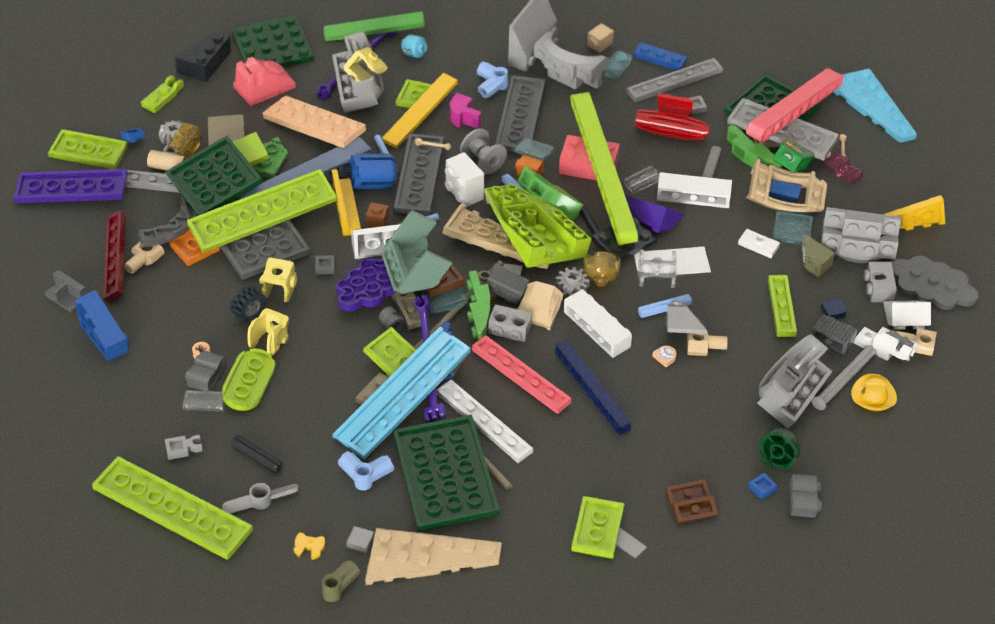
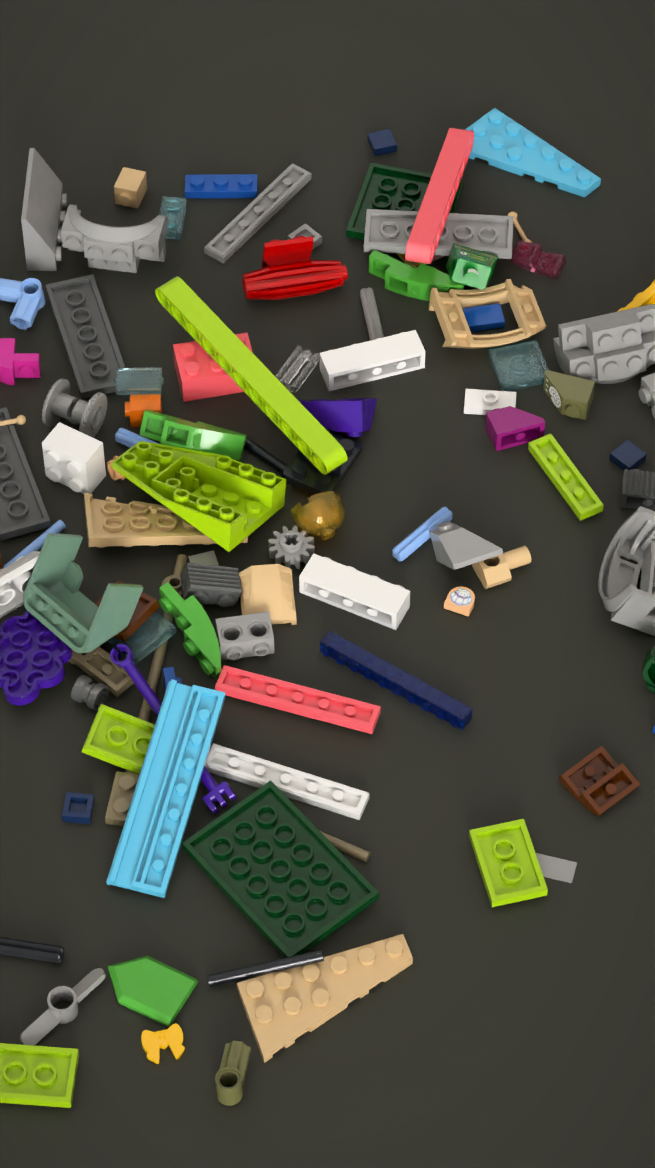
camera: 25 degrees left, 5 degrees up
(322, 510) = (151, 988): none -> bright green tile
(343, 385) = (78, 808): none -> dark blue tile
(360, 539) = (223, 1006): light grey tile -> none
(364, 473) = (177, 917): light blue piece -> none
(399, 526) = (265, 968): none -> black bar
(657, 268) = (390, 487): clear hose -> none
(688, 259) = (395, 470): white sticker -> none
(764, 262) = (513, 427): none -> magenta slope
(781, 65) = (382, 142): none -> dark blue tile

